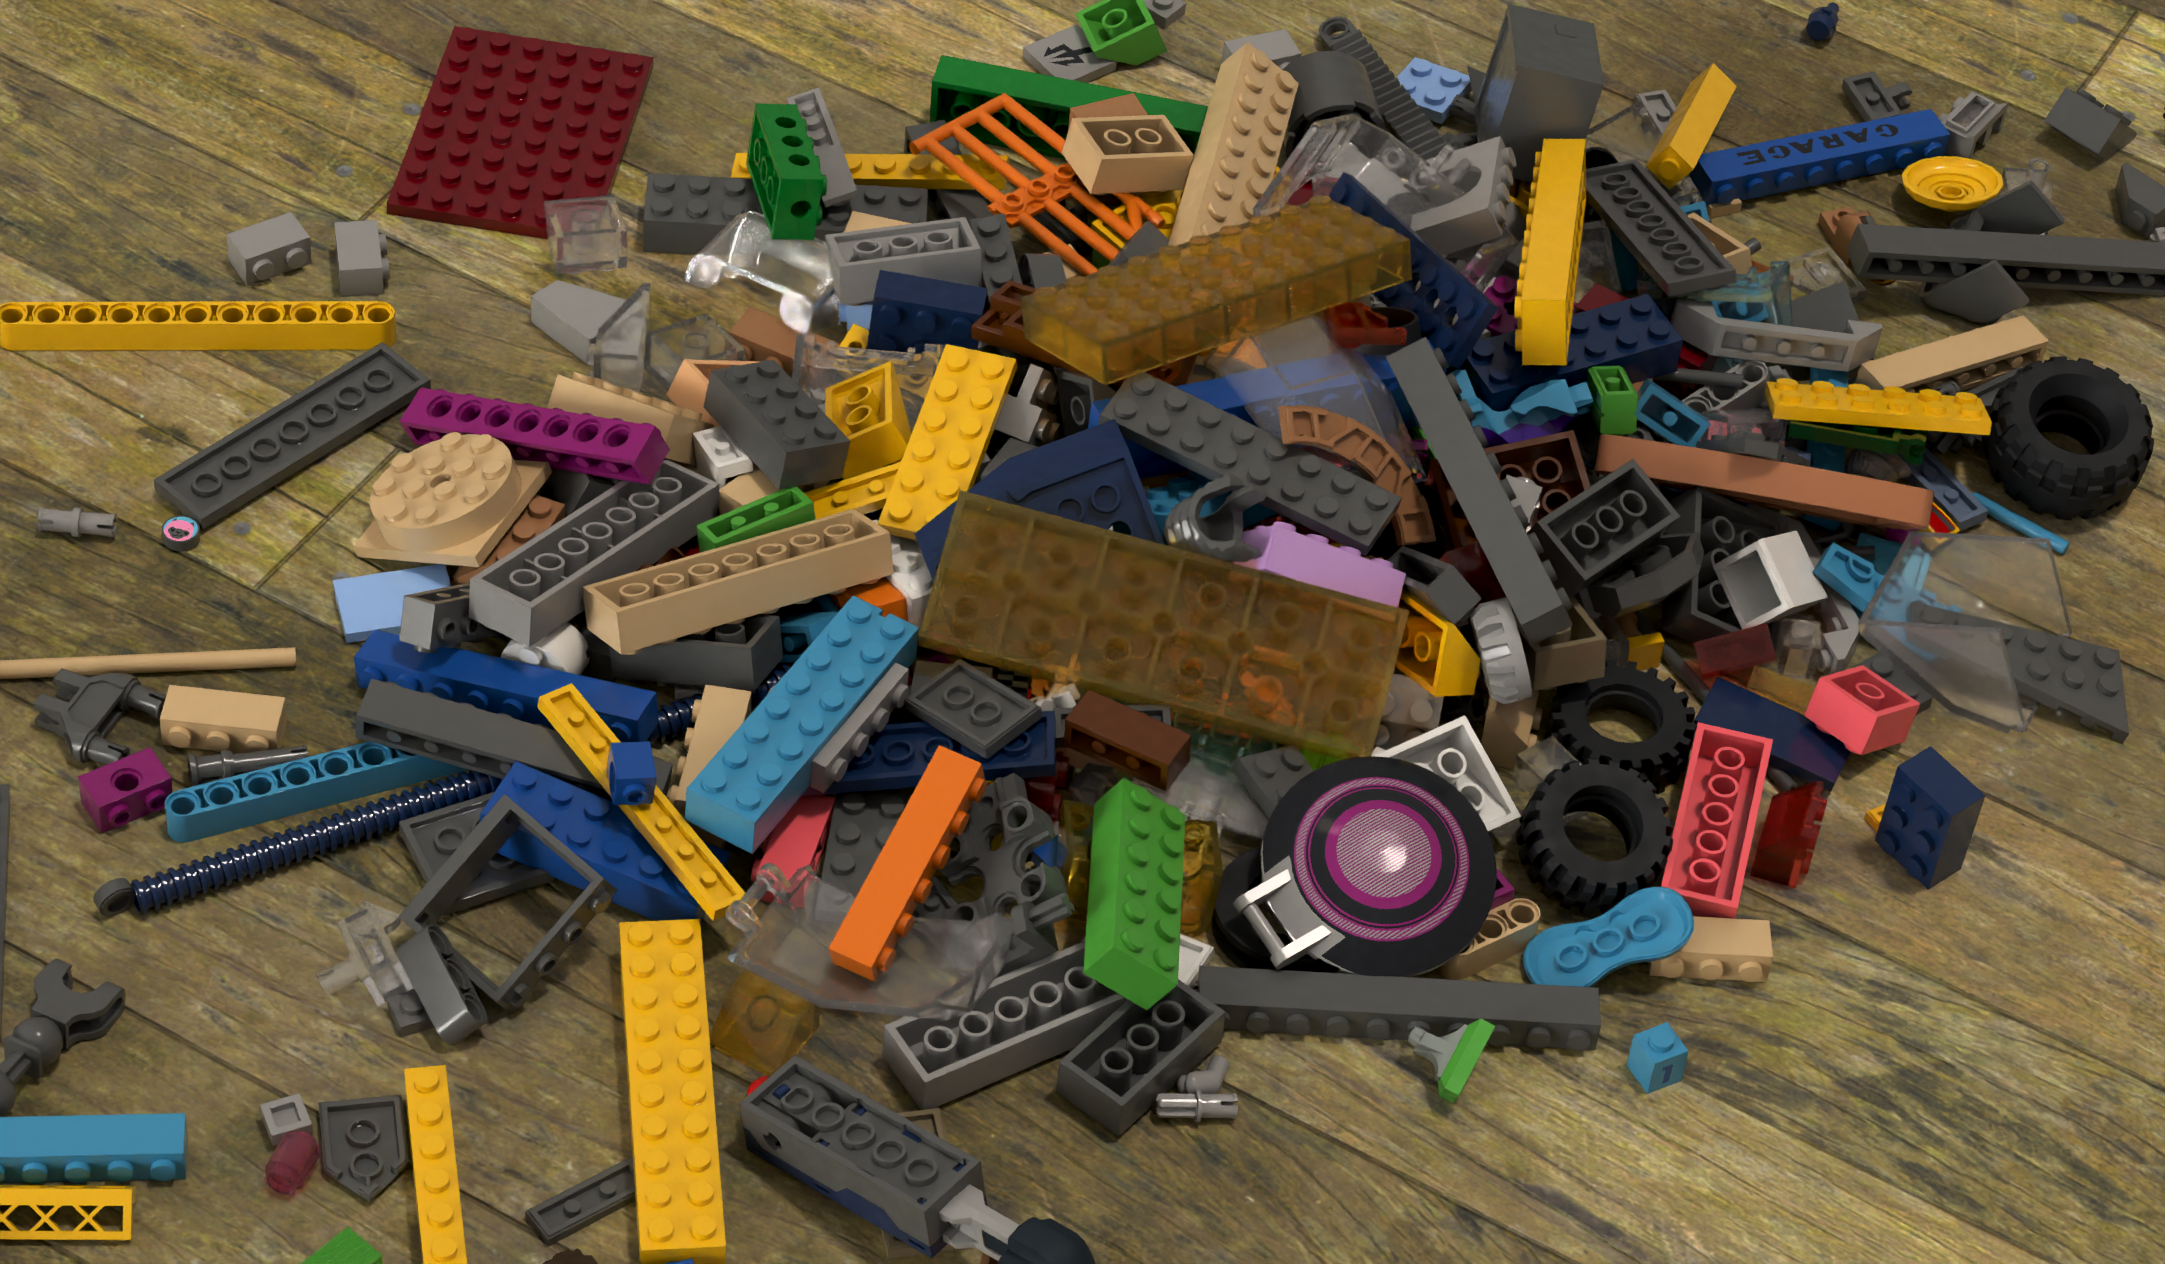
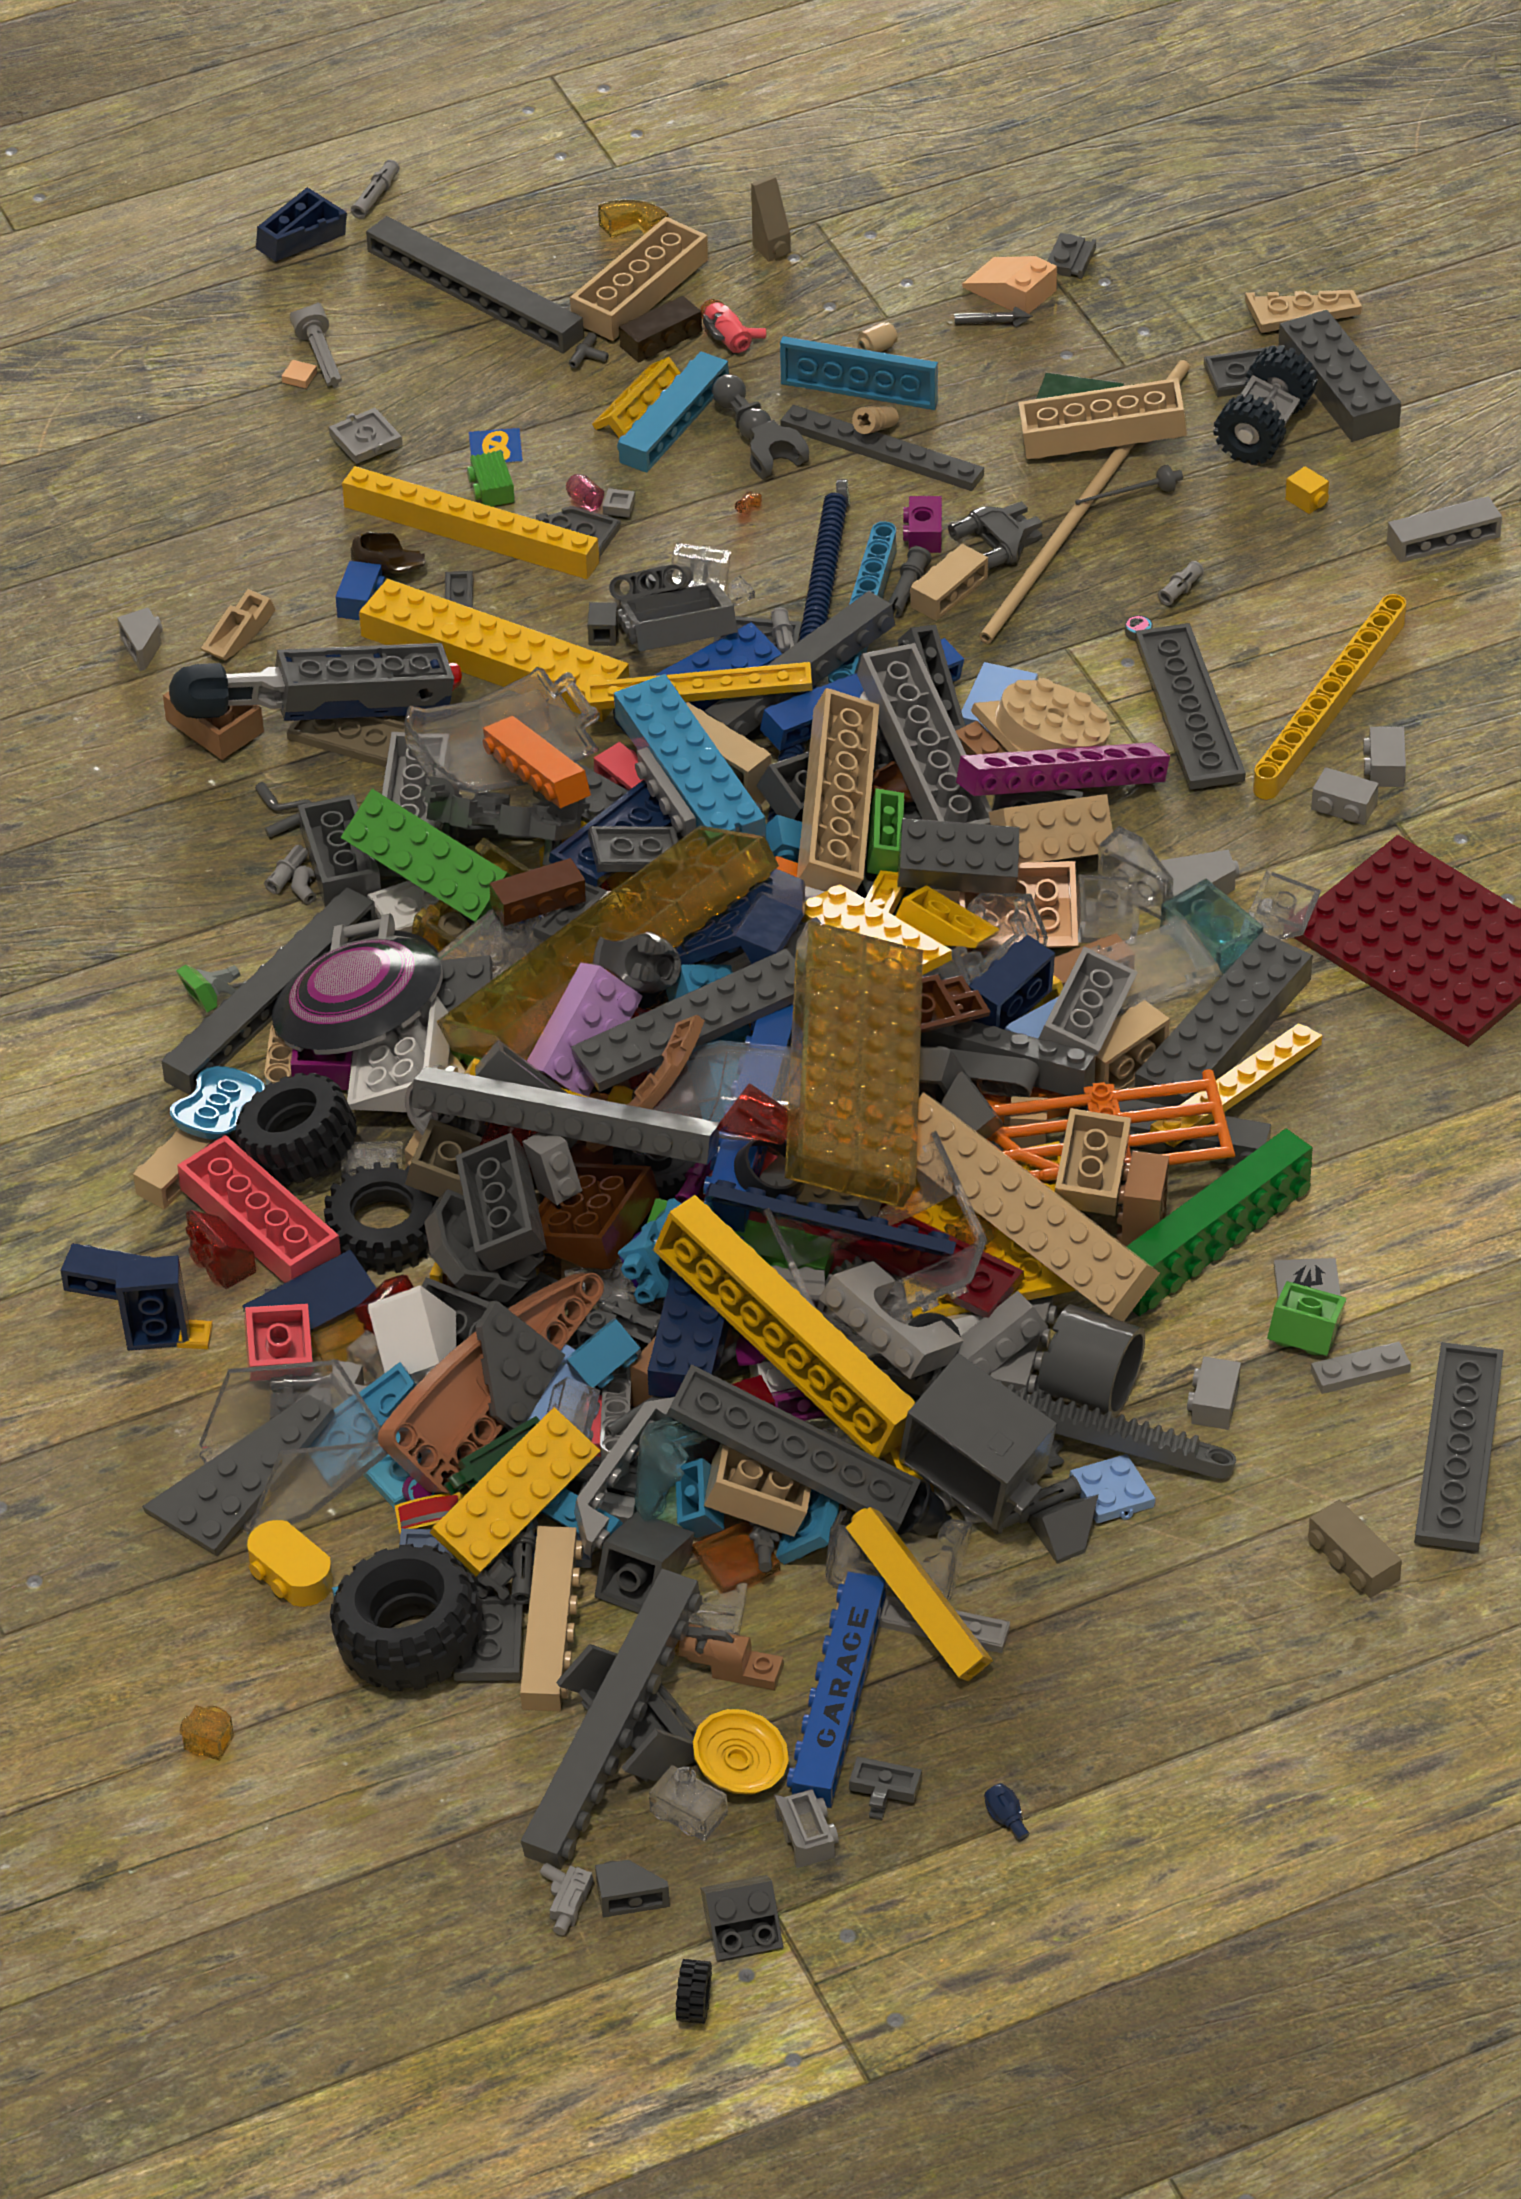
camera: 130 degrees right, 0 degrees up
(203, 989) = (747, 502): none -> clear orange arm
(441, 817) = (782, 629): none -> light grey axle
(538, 1015) = (602, 624): none -> dark grey brick
(631, 773) = (707, 668): blue brick -> none
(656, 255) = (1215, 919): none -> clear light blue brick
(785, 172) = (1243, 980): green brick -> none
(826, 146) = (1269, 1037): light grey slope -> none
(1110, 1146) = (272, 803): none -> dark grey piece
(1613, 400) = (626, 1300): bright green brick -> none
(1657, 1057) = (121, 1086): dark azure brick -> none
(1899, 918) = (92, 1270): none -> dark blue brick
(2084, 580) = (289, 1563): none -> yellow brick

